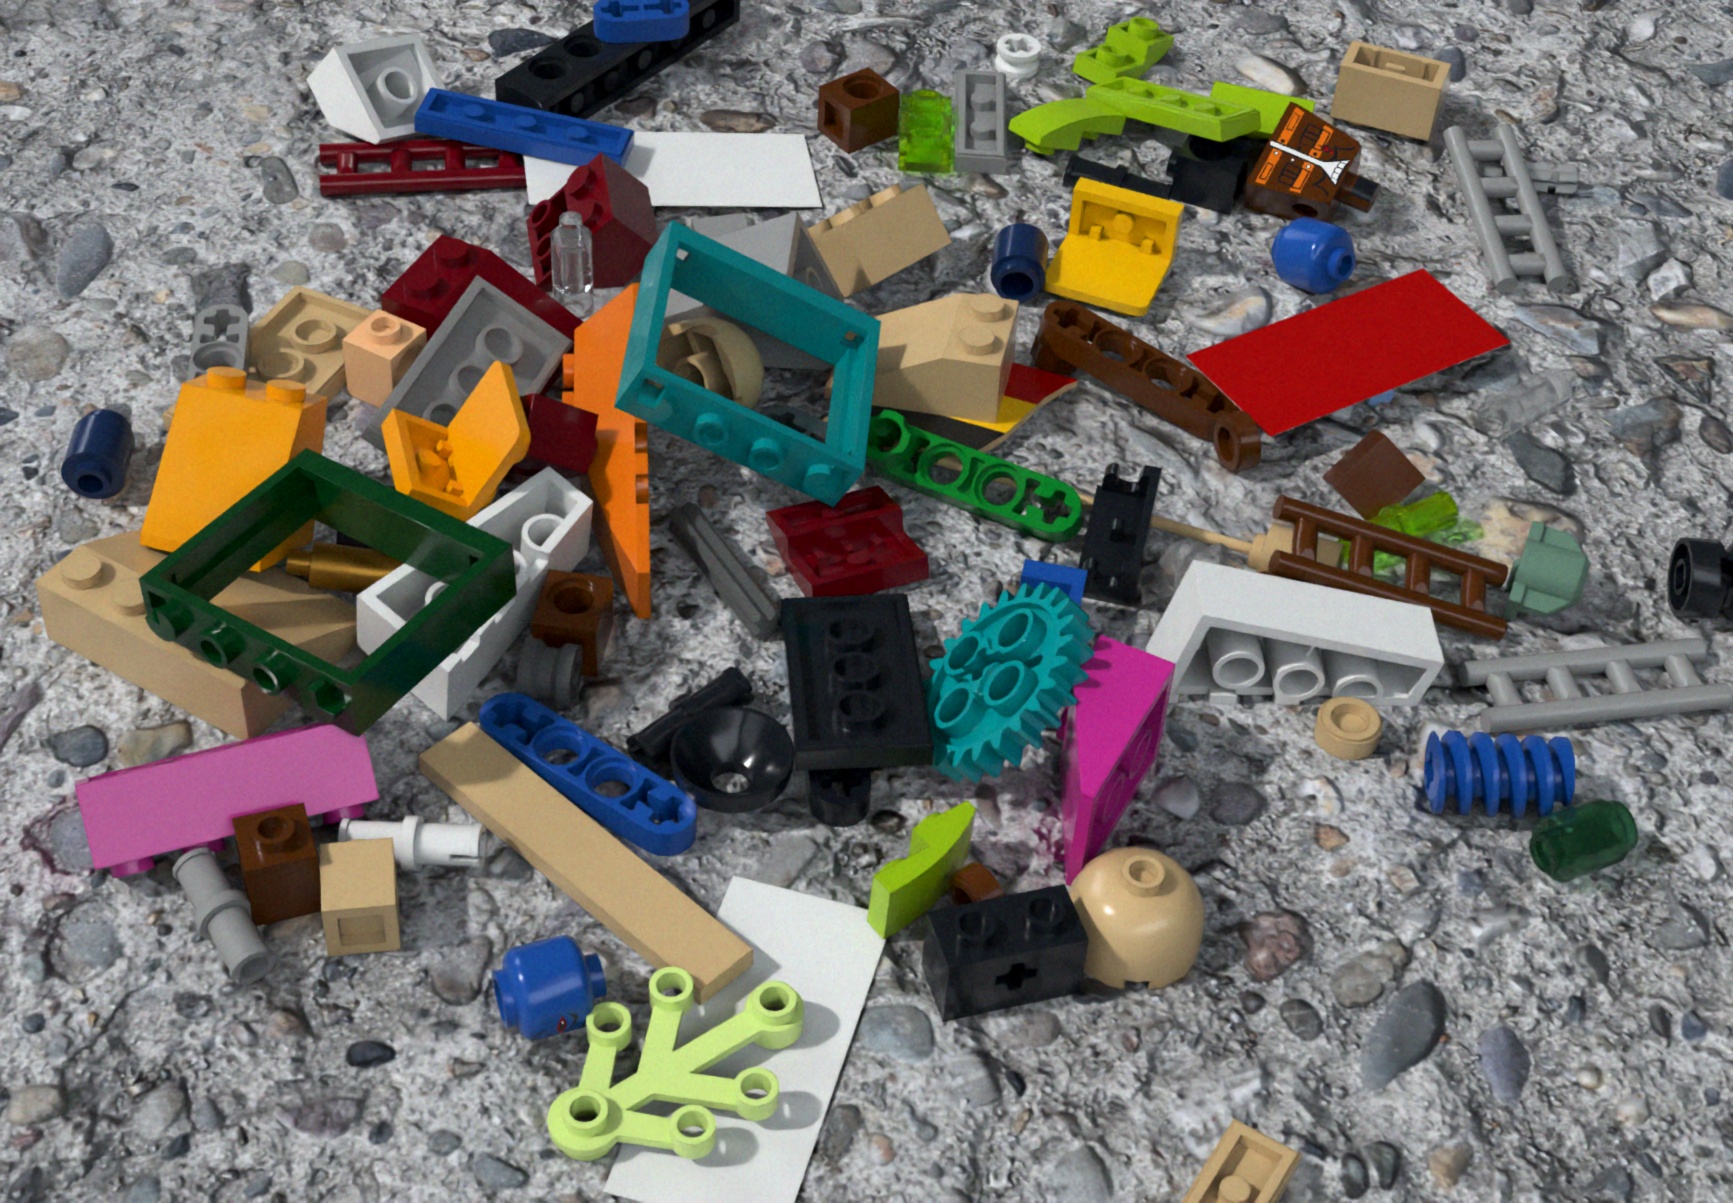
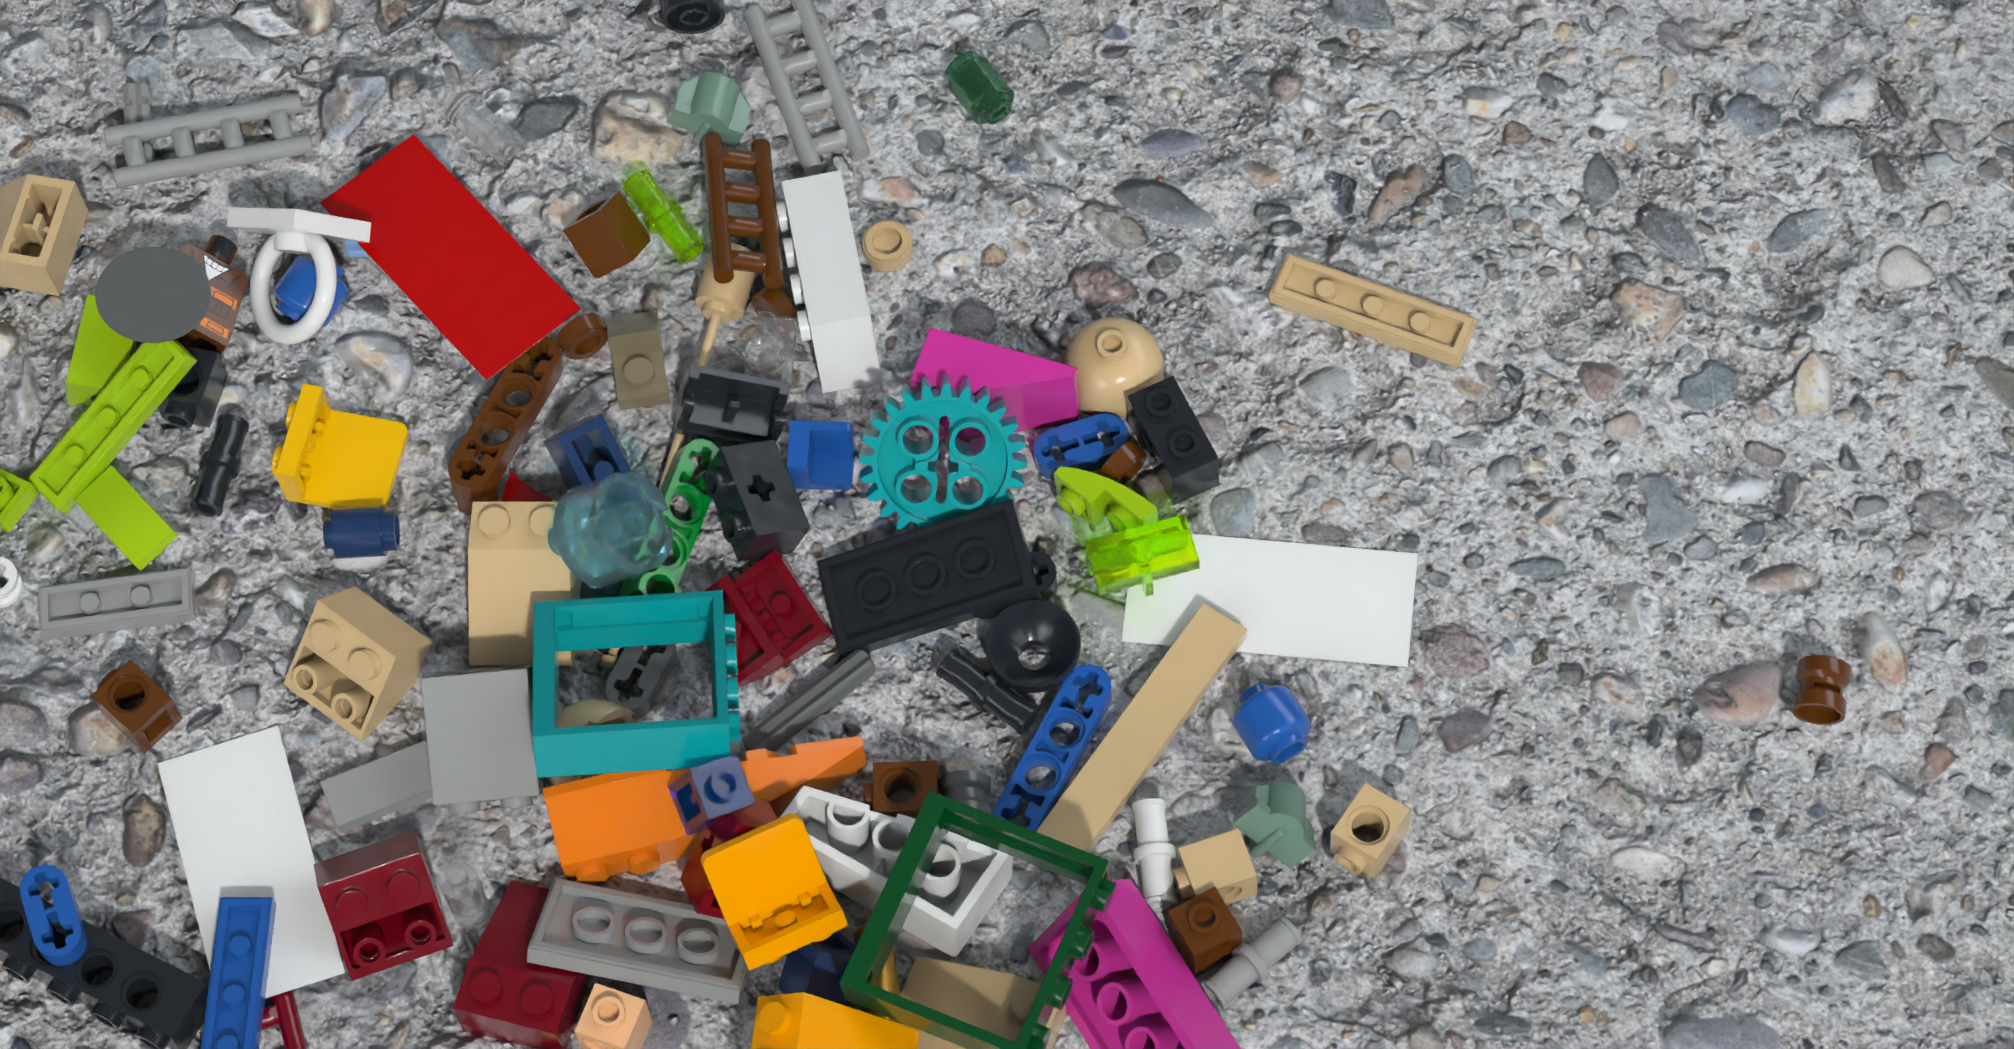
camera: 90 degrees left, 20 degrees up
(357, 1098) = (1374, 811): none -> tan brick
(406, 970) = (1277, 822): none -> sand green piece
(582, 382) = (710, 793): none -> clear blue bracket
(672, 1074) = (1315, 638): yellowish green plant -> none
(824, 872) = (1141, 555): none -> clear neon green panel
(919, 386) = (611, 529): none -> clear light blue brick
(925, 132) = (155, 648): clear neon green slope -> none
(968, 557) = (755, 500): none -> black brick
(1036, 866) = (1079, 444): none -> blue beam
(1058, 421) = (586, 452): none -> dark blue slope
(1223, 491) = (638, 360): none -> dark tan slope
(1295, 108) = (153, 294): none -> dark grey sticker
(1370, 222) = (295, 233): none -> white tile
(1498, 772) = (933, 138): blue piece -> none

